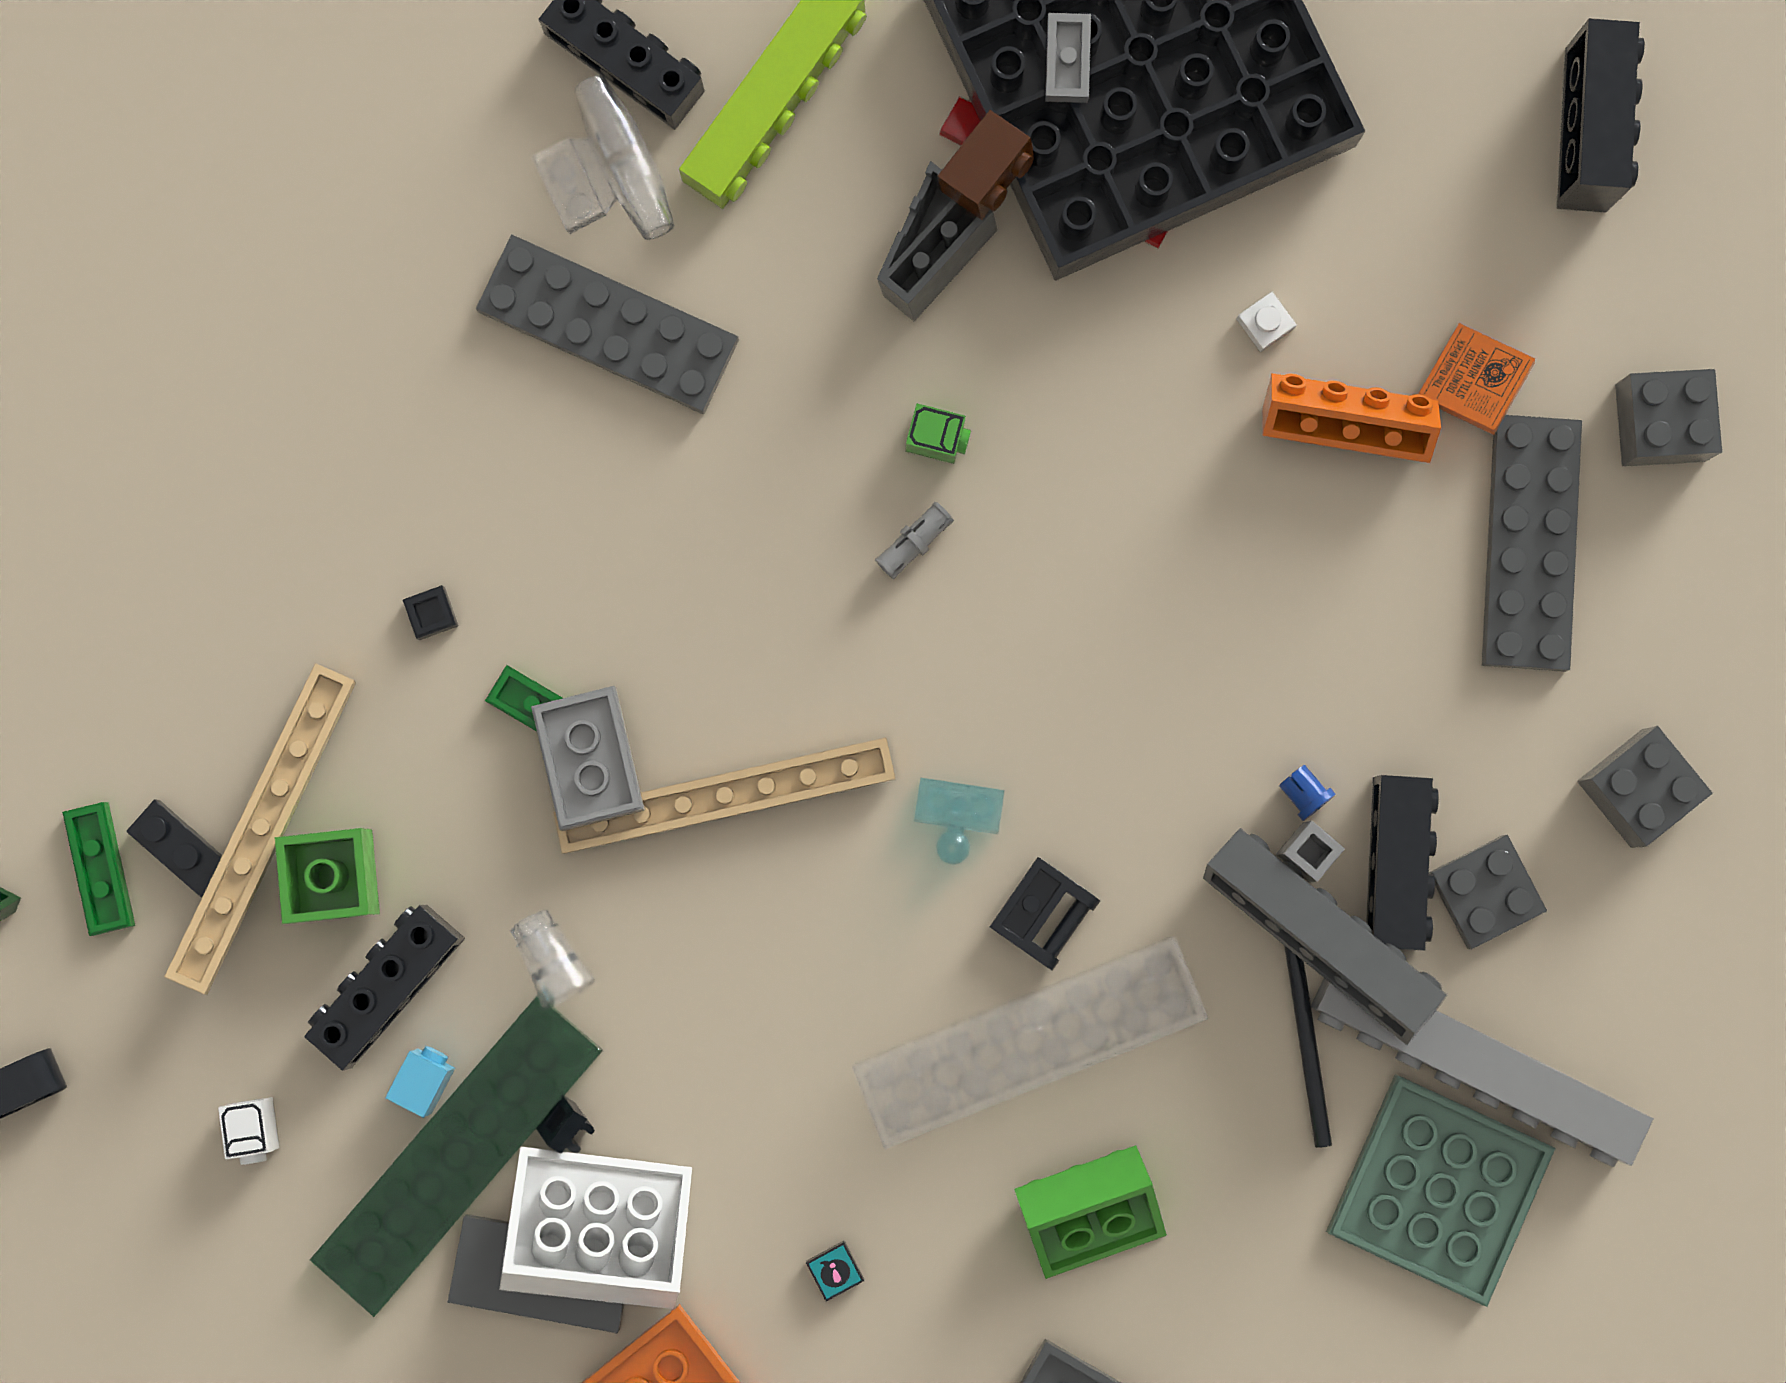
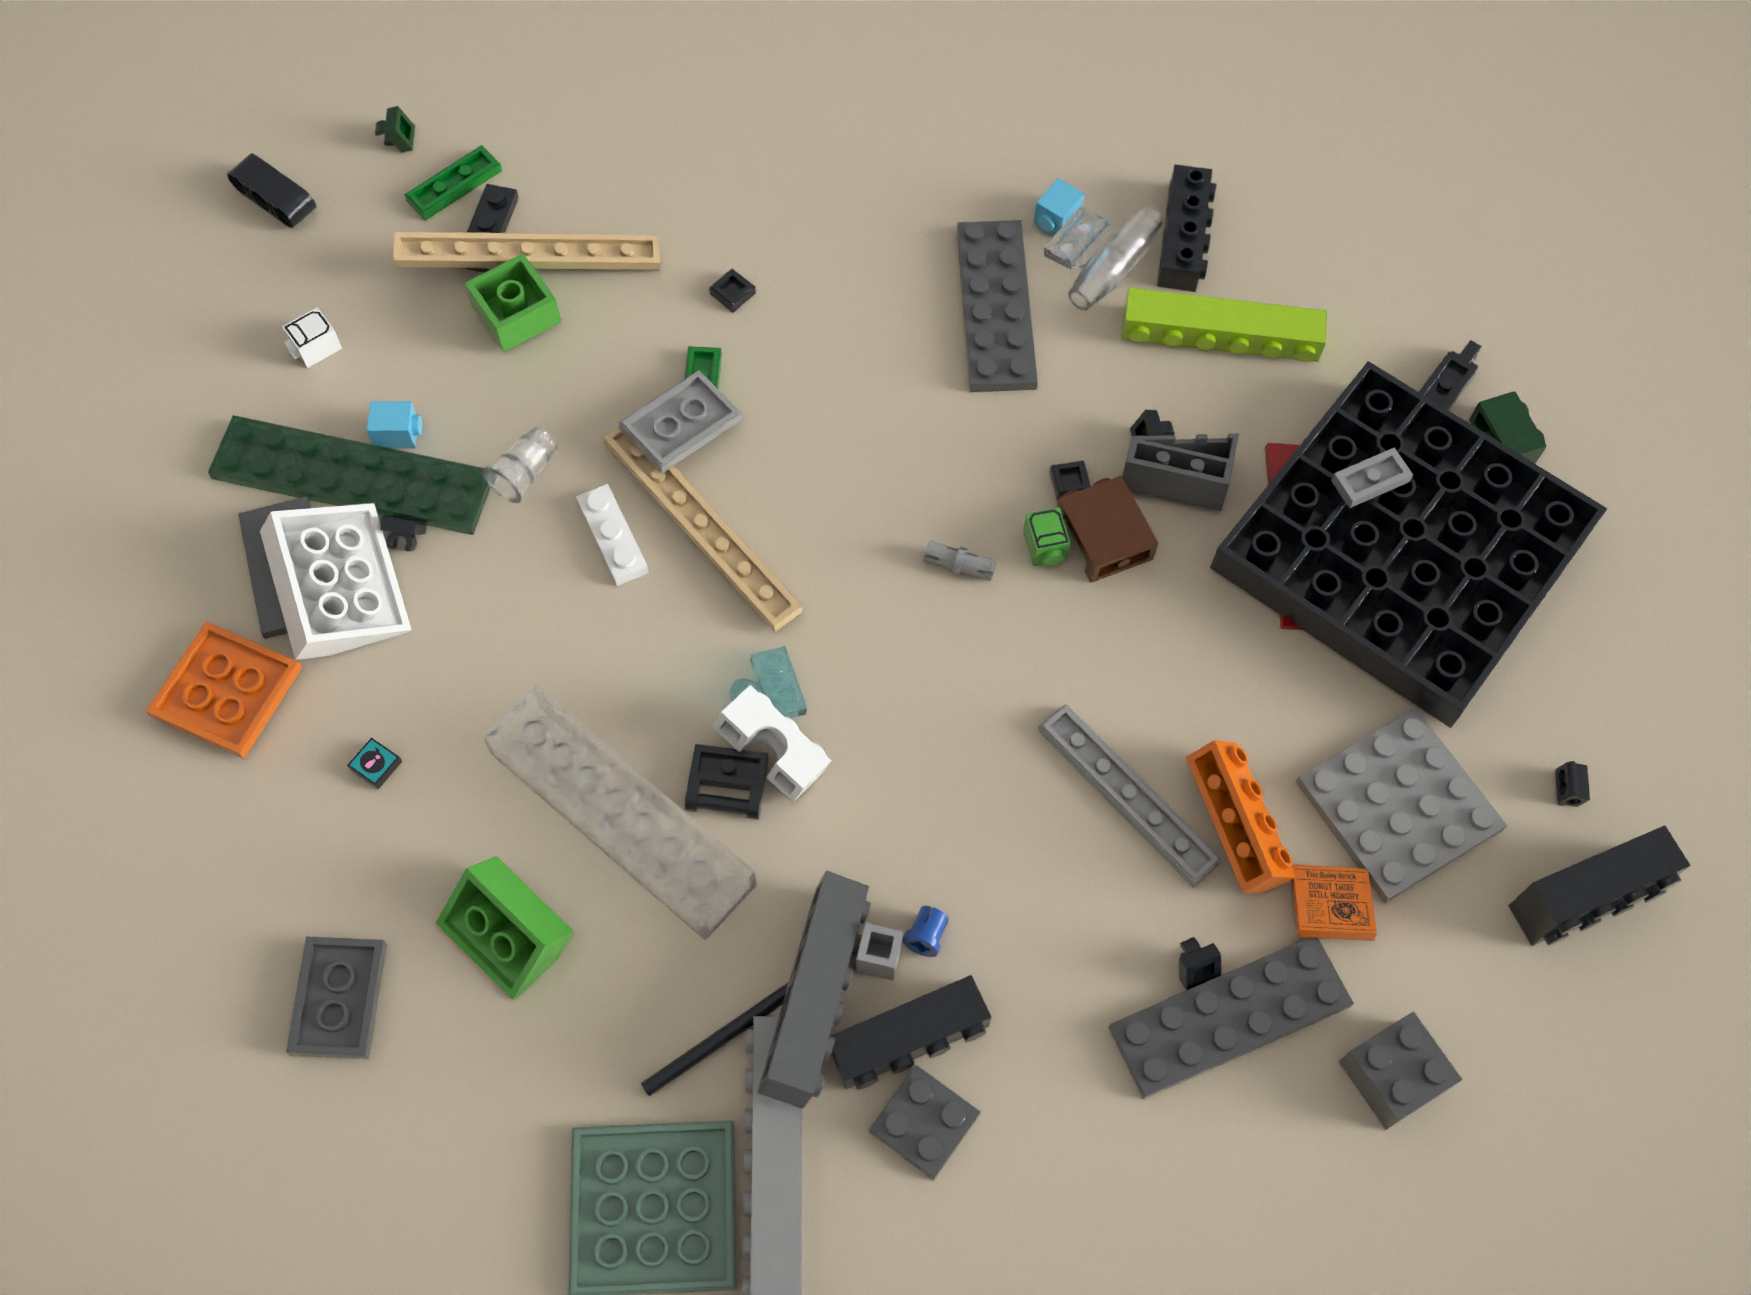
camera: 60 degrees right, 20 degrees down
(383, 987) = (452, 373): black brick -> none
(520, 183) = (1057, 206): none -> medium azure brick
(685, 898) = (612, 534): none -> white plate
(867, 250) = (1150, 425): none -> black tile
(874, 368) = (1069, 477): none -> black tile
(956, 363) = (1108, 527): none -> reddish brown panel
(987, 165) = (1257, 458): reddish brown brick -> none
(1066, 831) = (755, 719): none -> white arch
(1260, 511) = (1129, 795): none -> light grey tile
(1266, 321) = (1275, 728): white plate -> none
(1407, 247) = (1400, 804): none -> light grey plate
(1471, 546) = (1198, 964): none -> black tile
(1476, 66) = (1572, 784): none -> black piece
(1644, 787) = (1083, 1206): dark grey brick -> none

